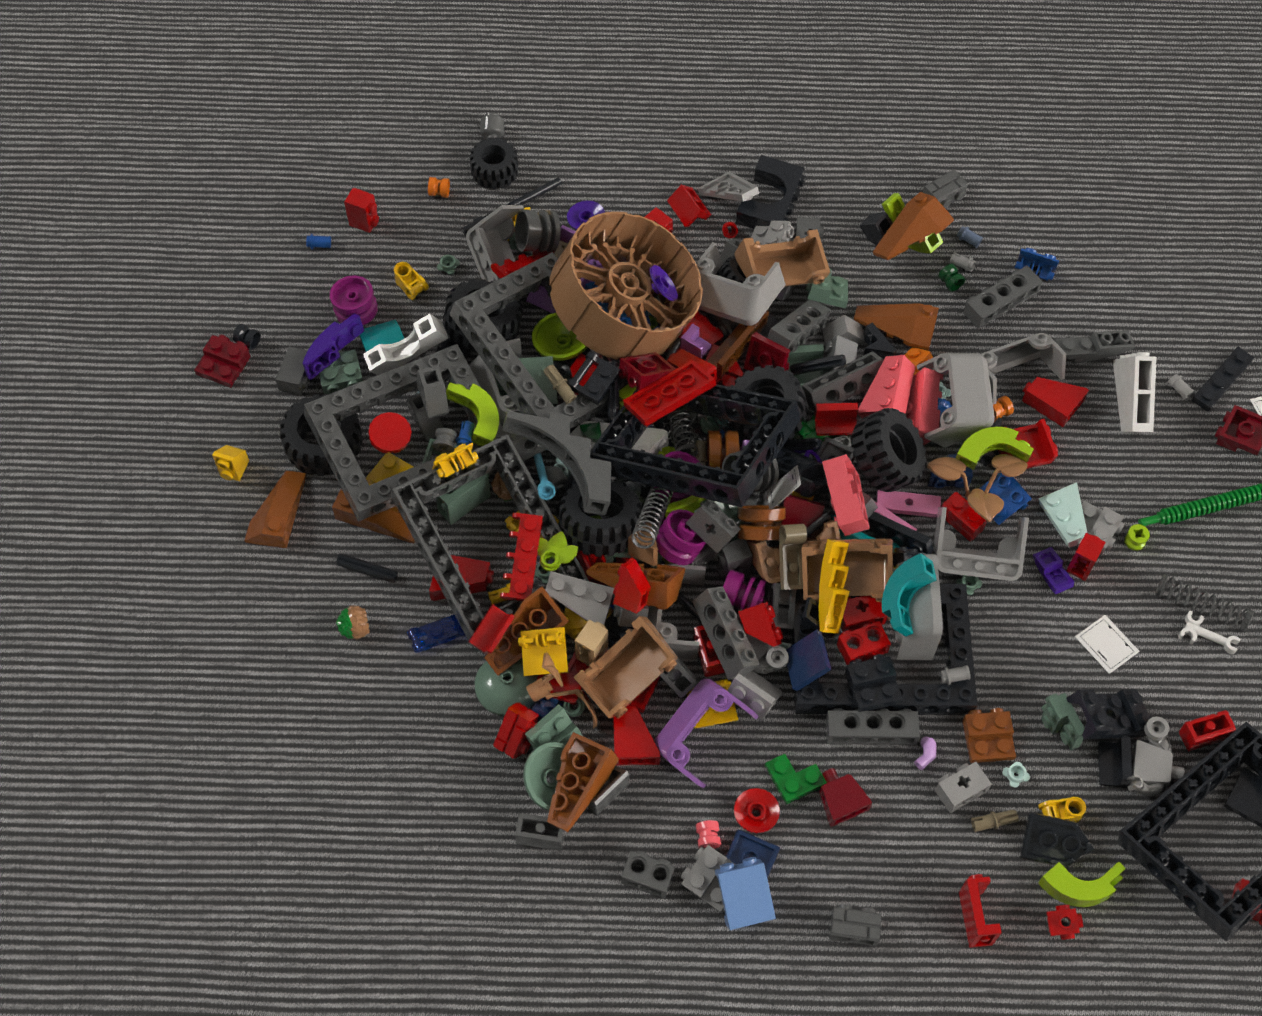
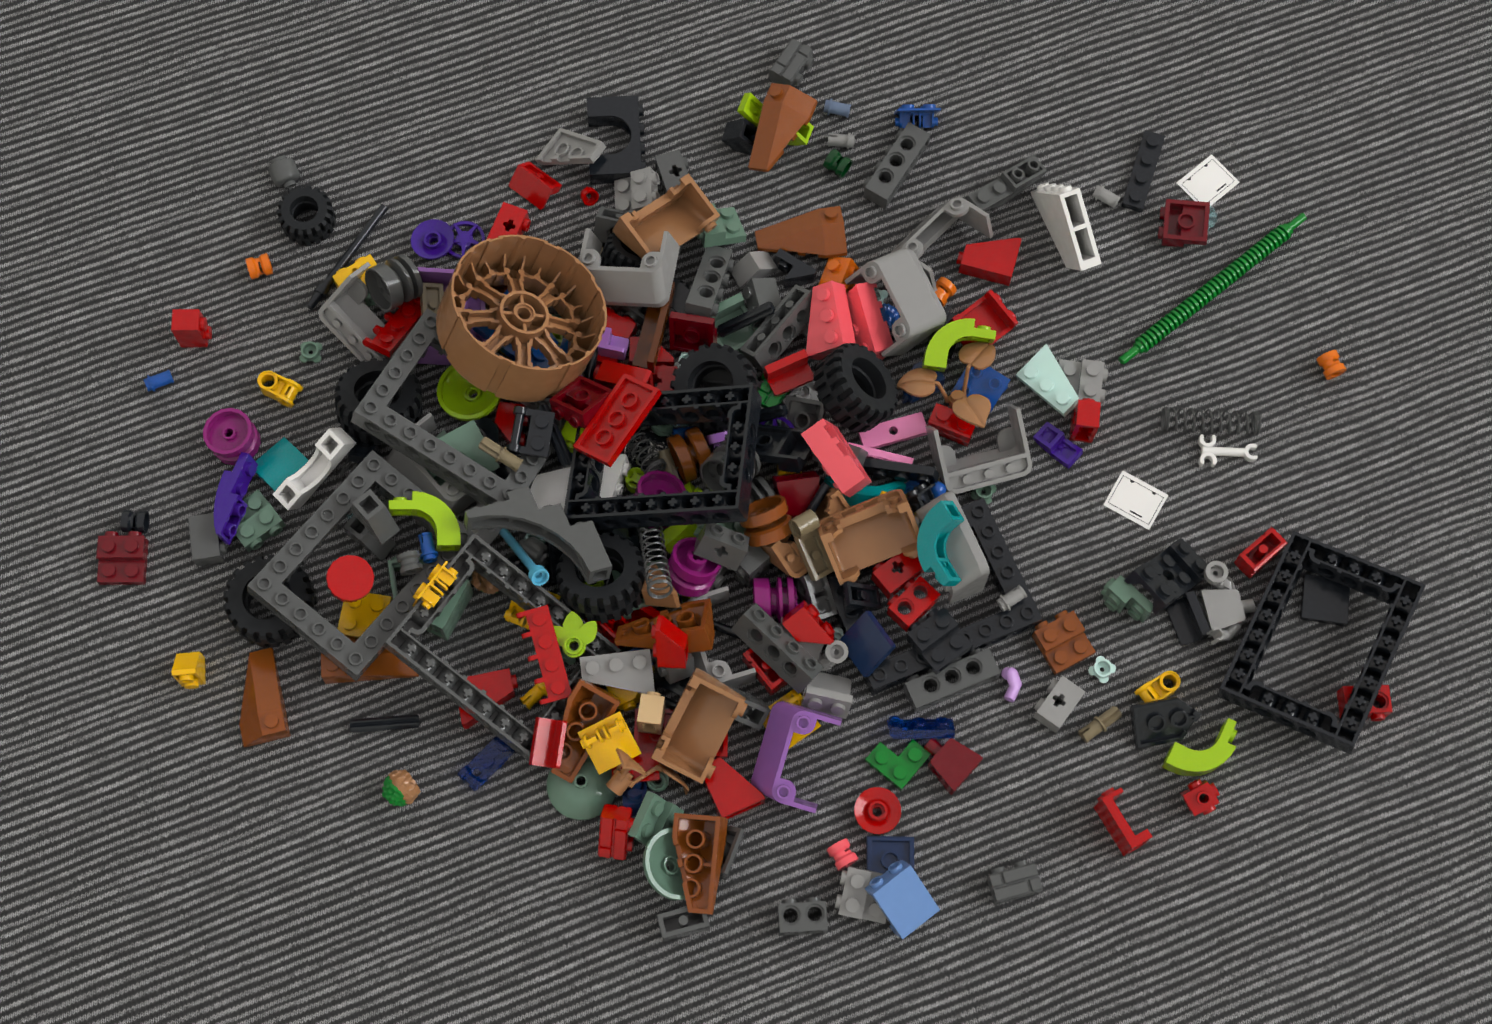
camera: 25 degrees left, 10 degrees up
(591, 431) = (550, 485): dark green tile -> none
(662, 283) = (558, 300): dark purple dish -> none
(783, 487) = (773, 475): white sticker -> none
(826, 756) = (921, 728): none -> clear blue plate
(831, 587) = (865, 568): yellow slope -> none
(1137, 542) = (1121, 382): lime wheel -> none

